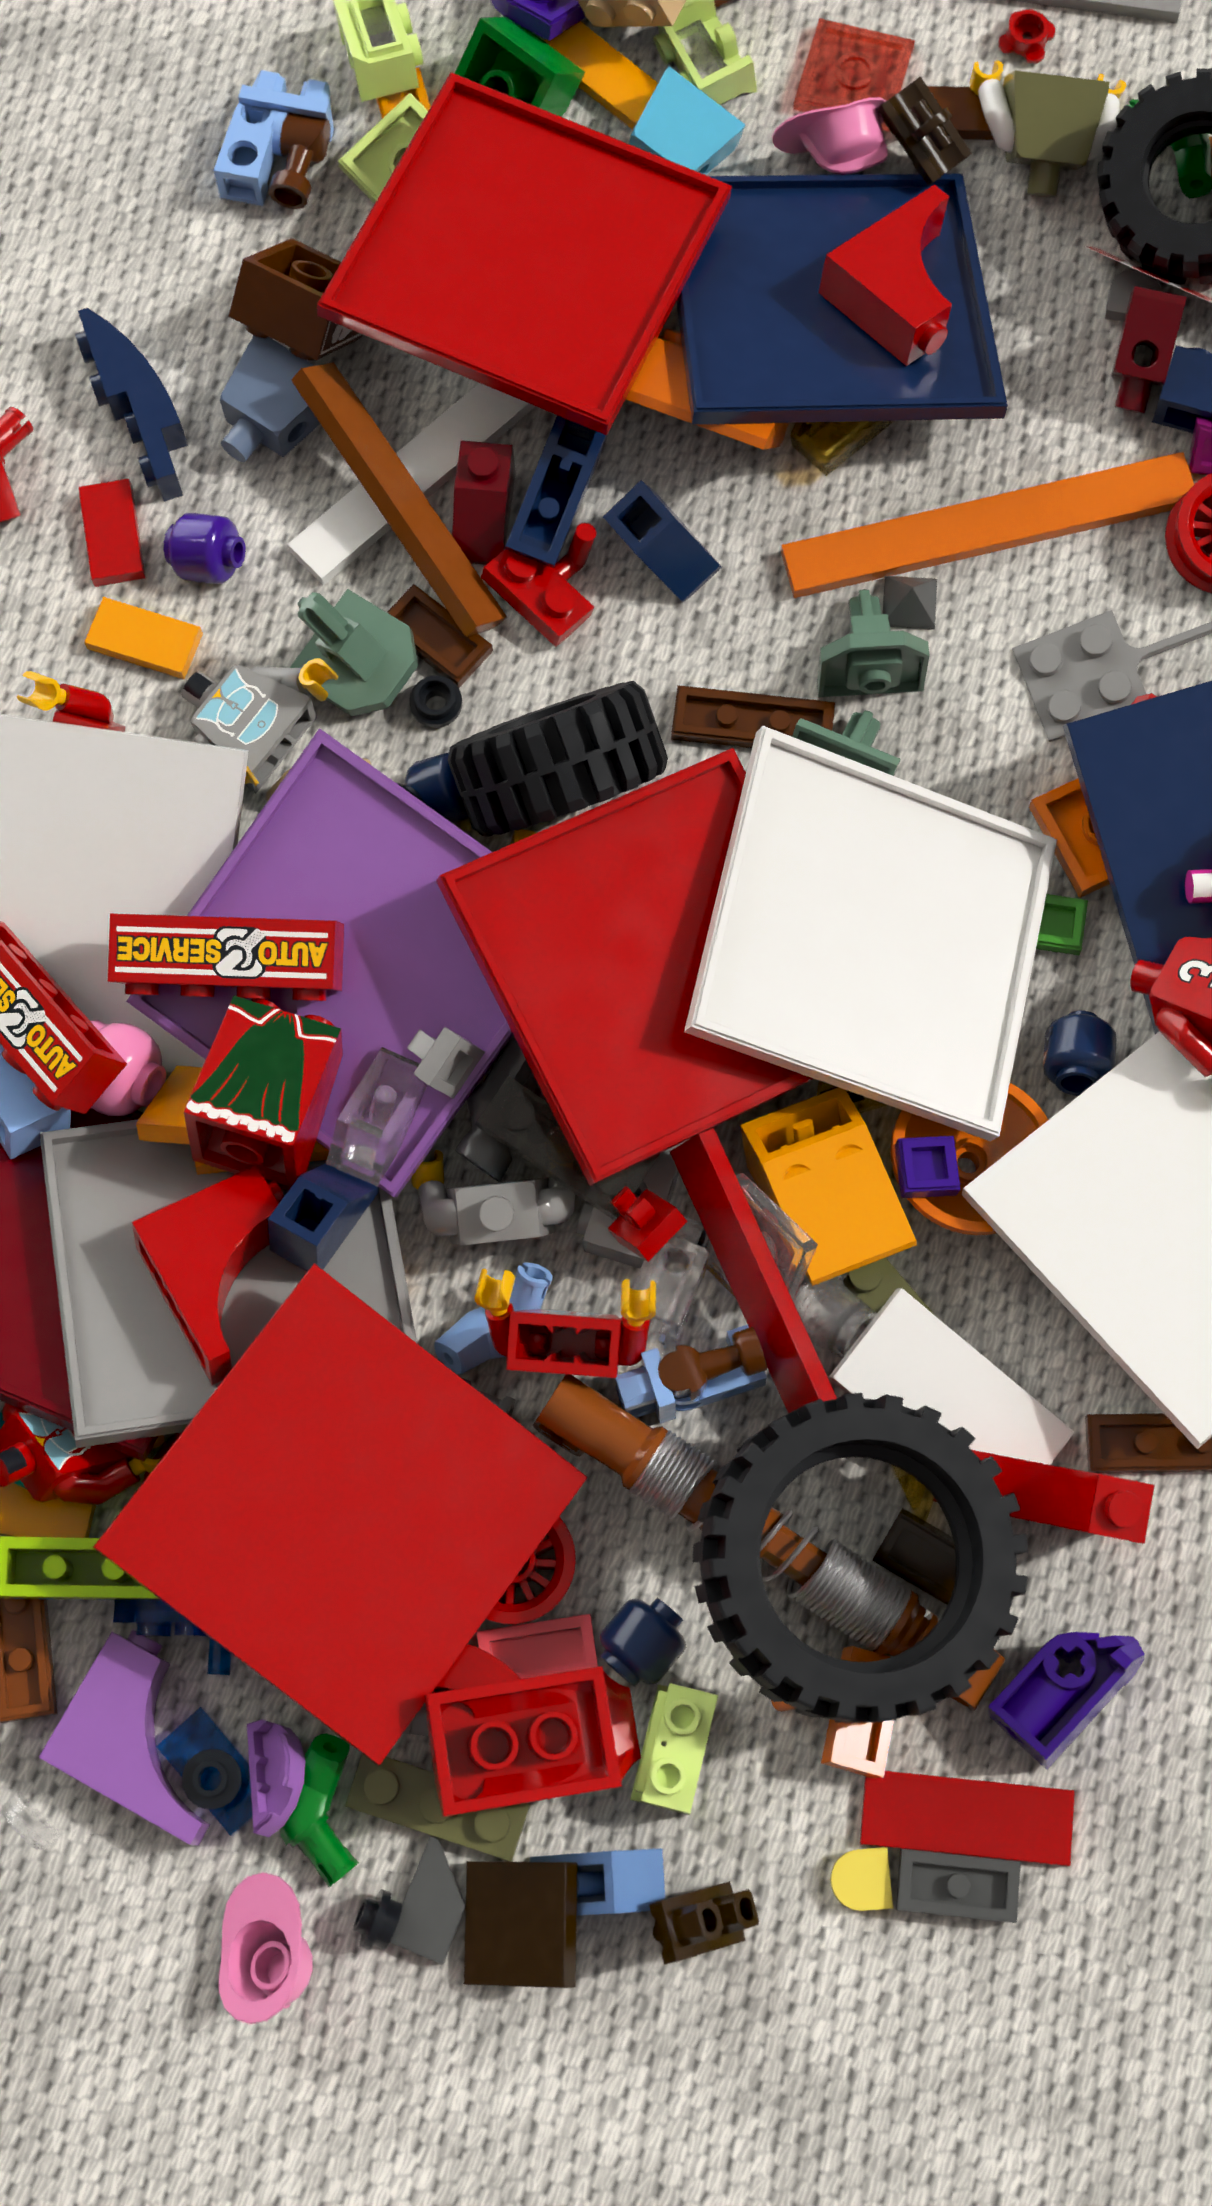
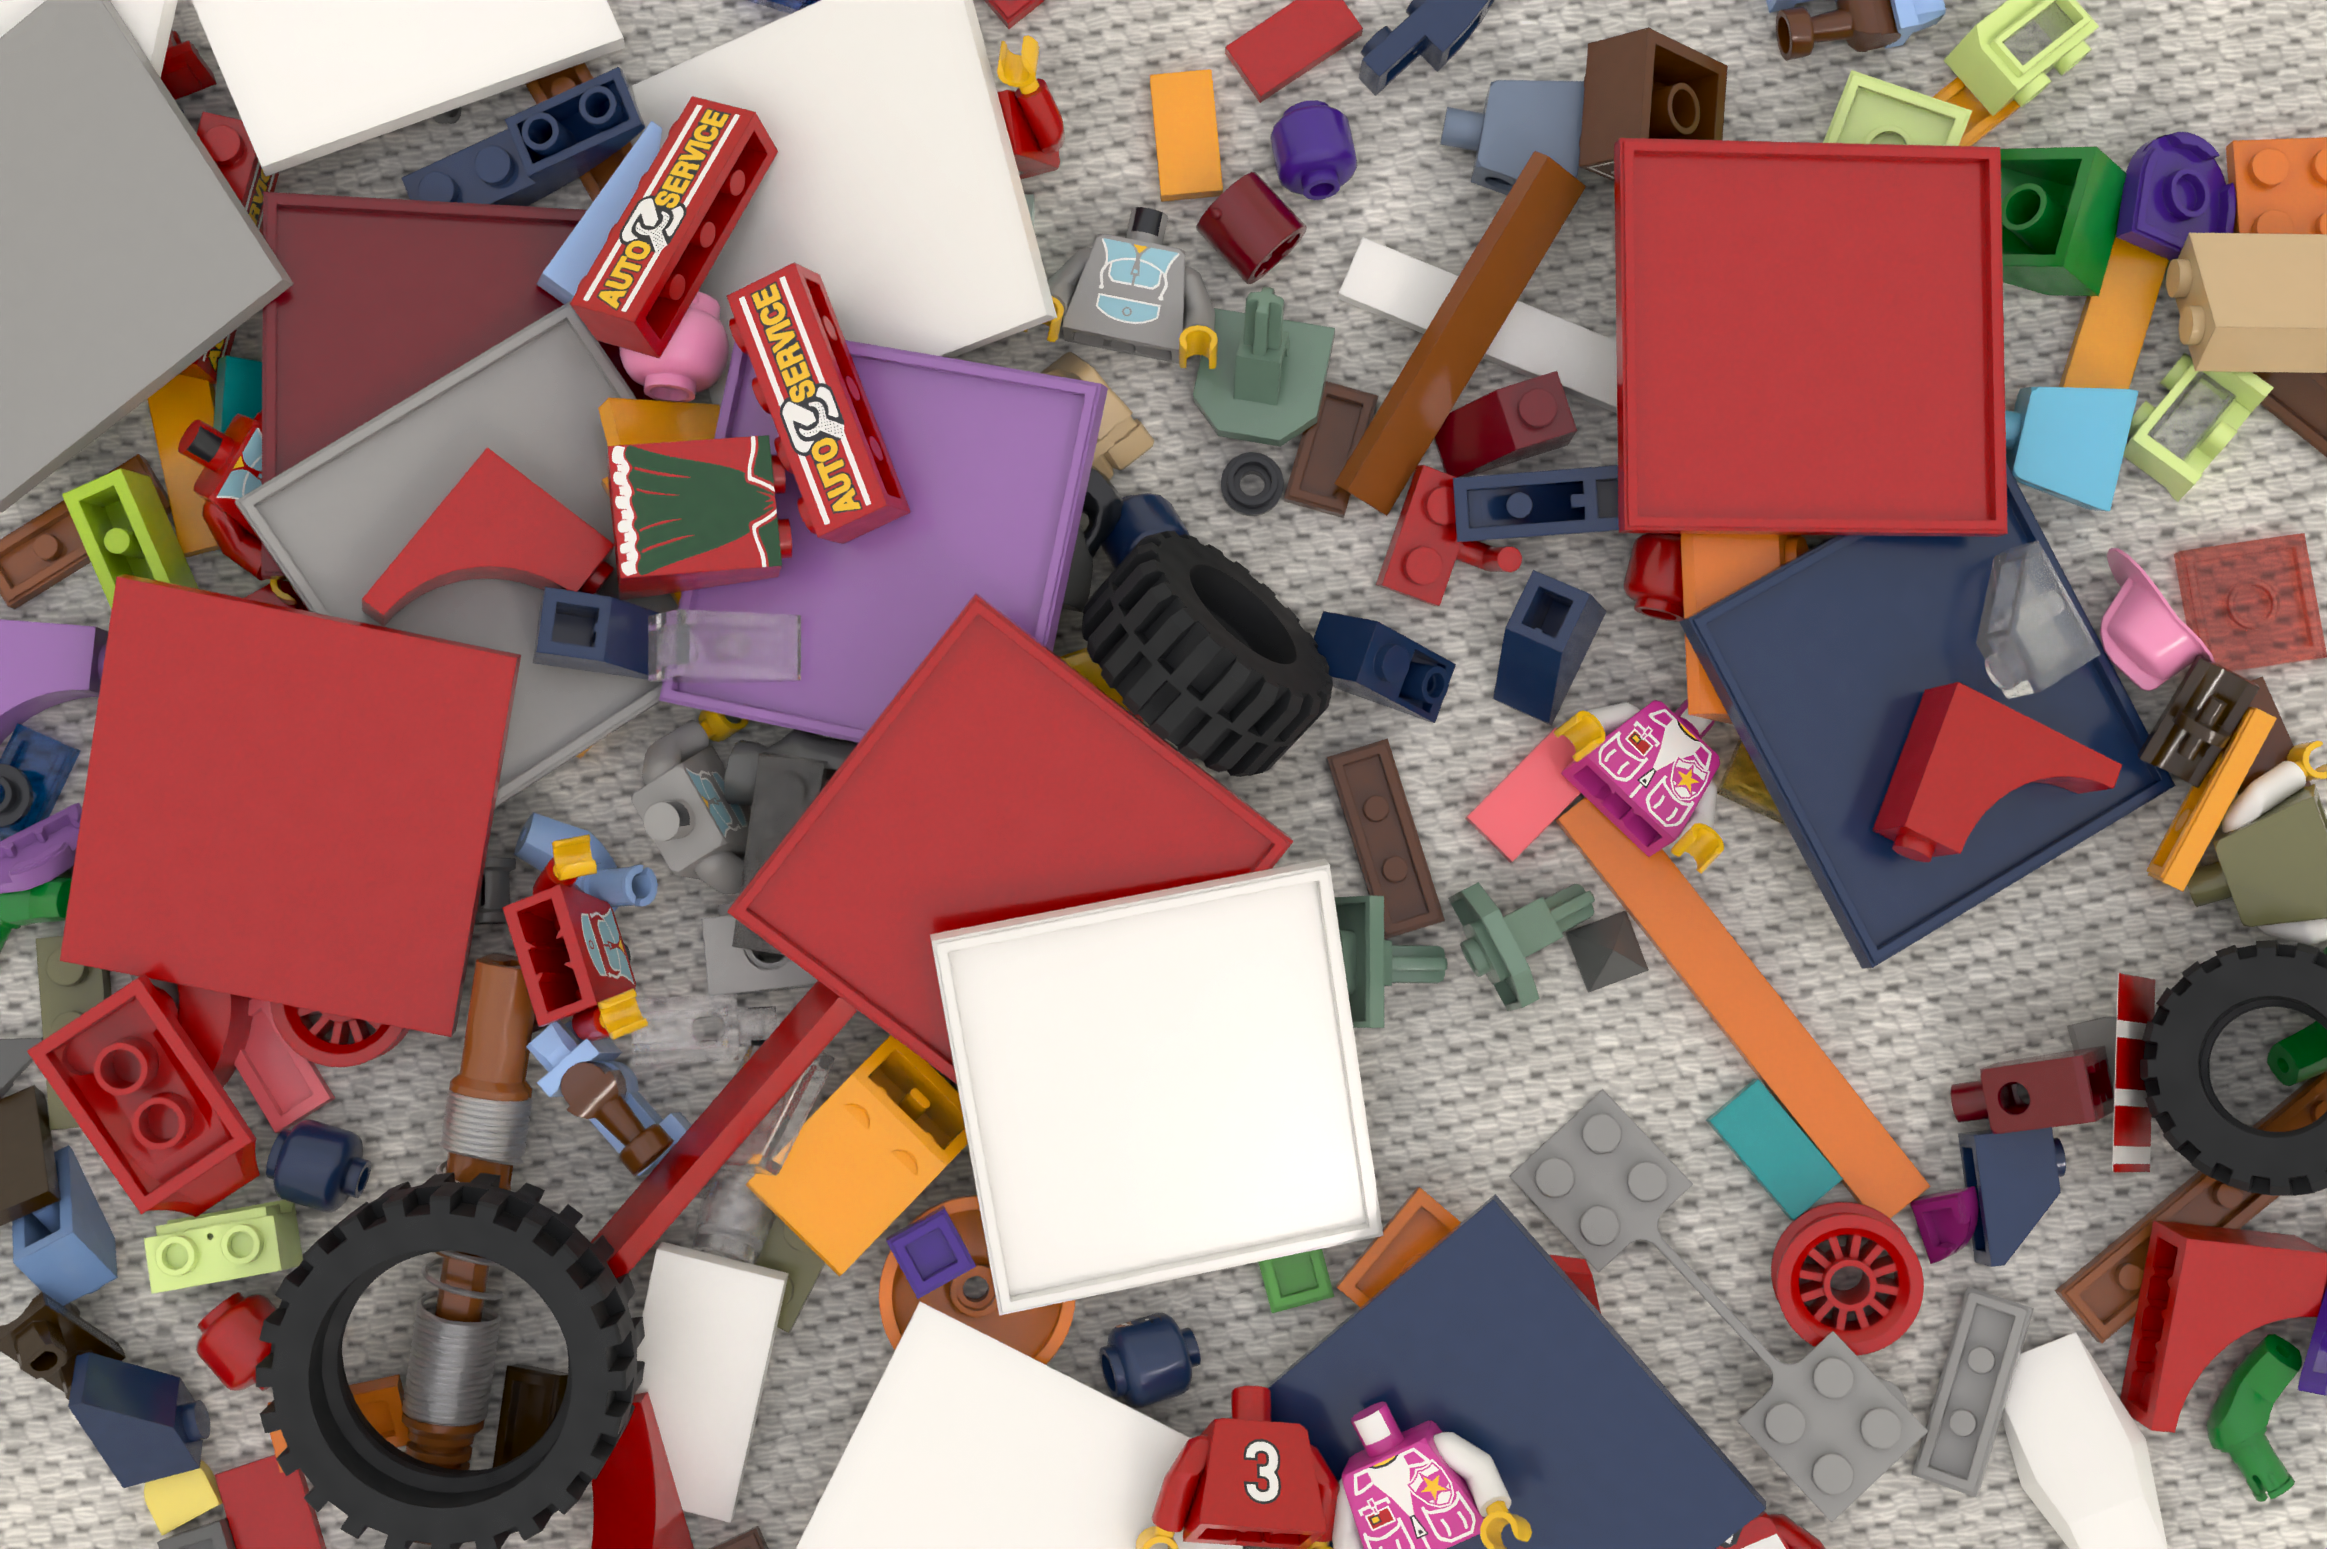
camera: 65 degrees right, 10 degrees up
(241, 615) = (1251, 227): none -> dark red piece
(445, 1060) = (805, 688): light grey tile -> none
(619, 655) = (1383, 665): none -> dark blue slope
(644, 1222) = (736, 979): red tile -> none
(647, 439) = (1656, 576): none -> red head
(763, 1763) = (232, 1340): none -> red head
(768, 603) = (1527, 798): none -> coral tile
(791, 1871) = (138, 1418): none -> dark blue slope
(796, 507) = (1649, 775): none -> torso
(802, 203) = (2030, 624): none -> clear slope
(989, 156) = (2207, 805): none -> light orange tile
(1109, 547) = (1774, 1149): none -> teal tile

